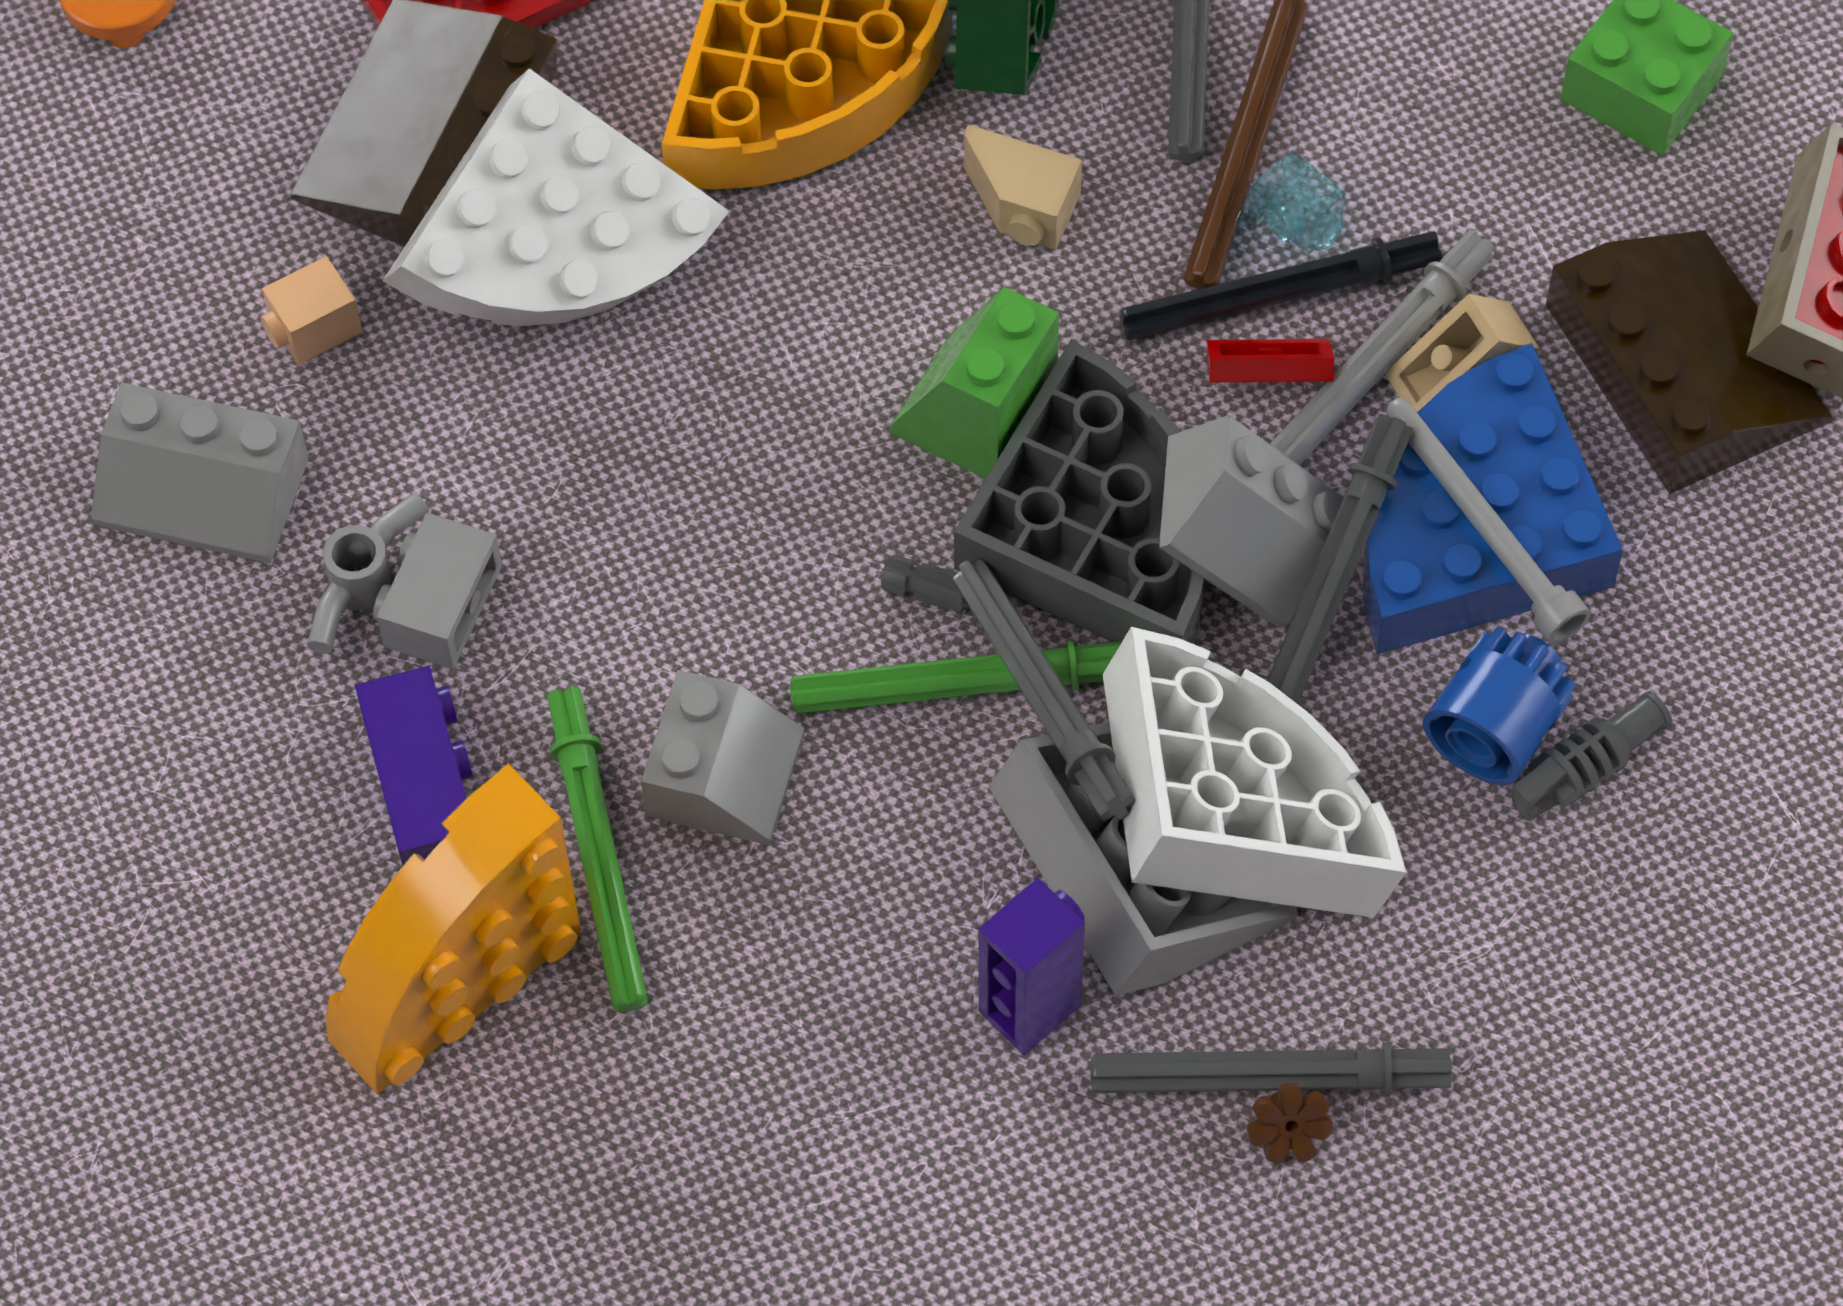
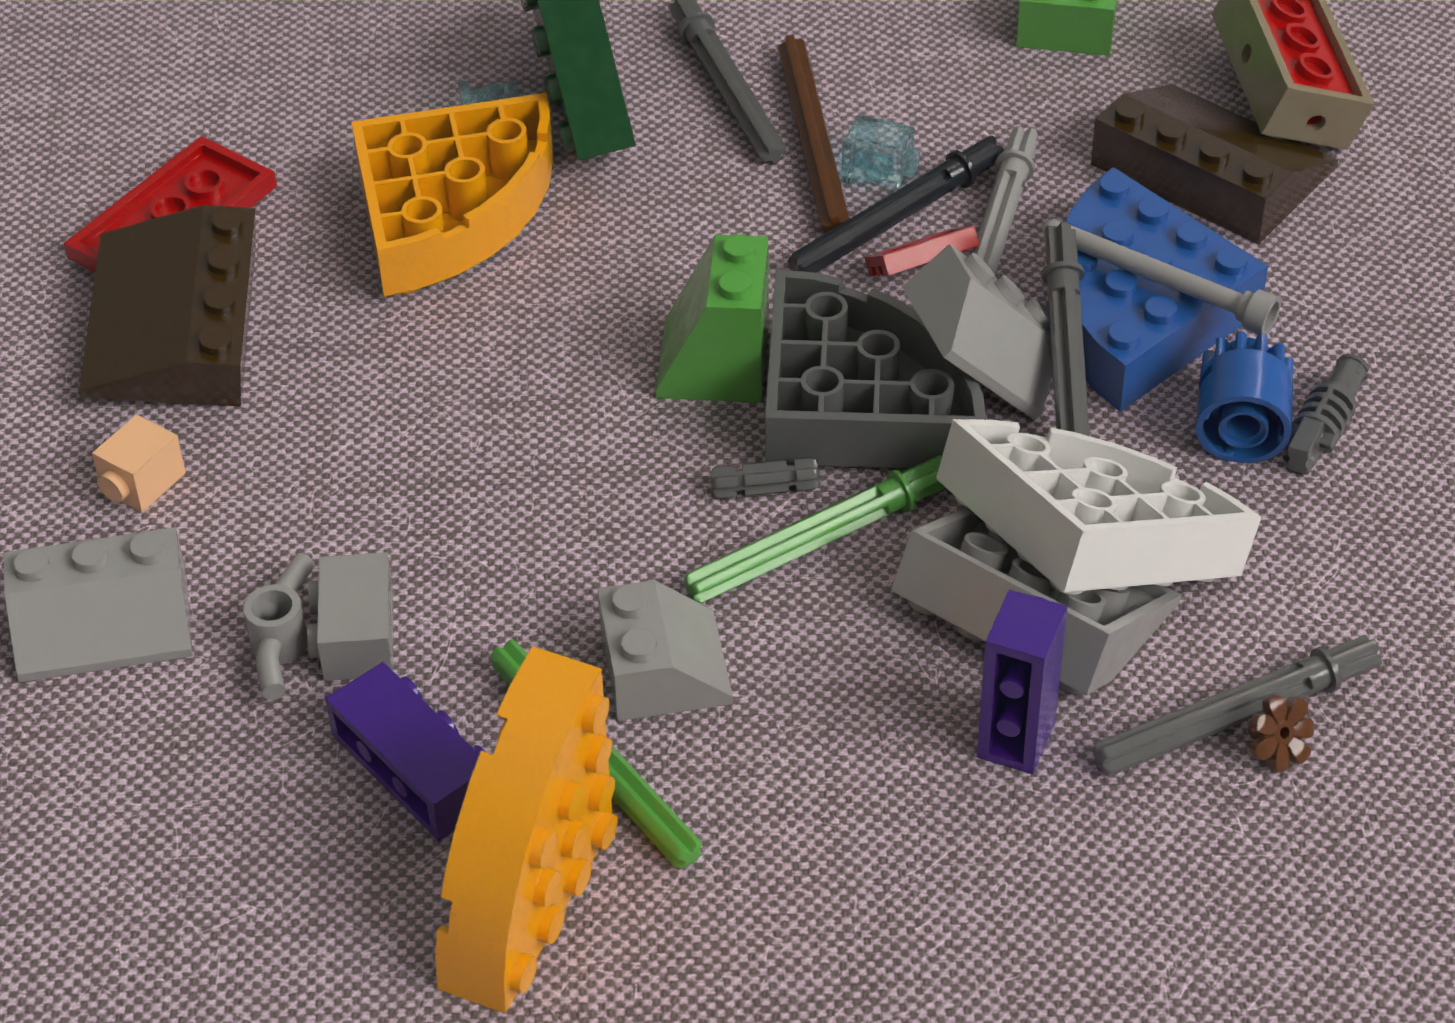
camera: 25 degrees left, 15 degrees down
(551, 218) = (313, 323): white brick -> none
(1023, 185) = (662, 205): tan slope -> none
(1087, 760) = (974, 523): dark grey axle -> none
(1459, 342) = (1052, 196): tan slope -> none

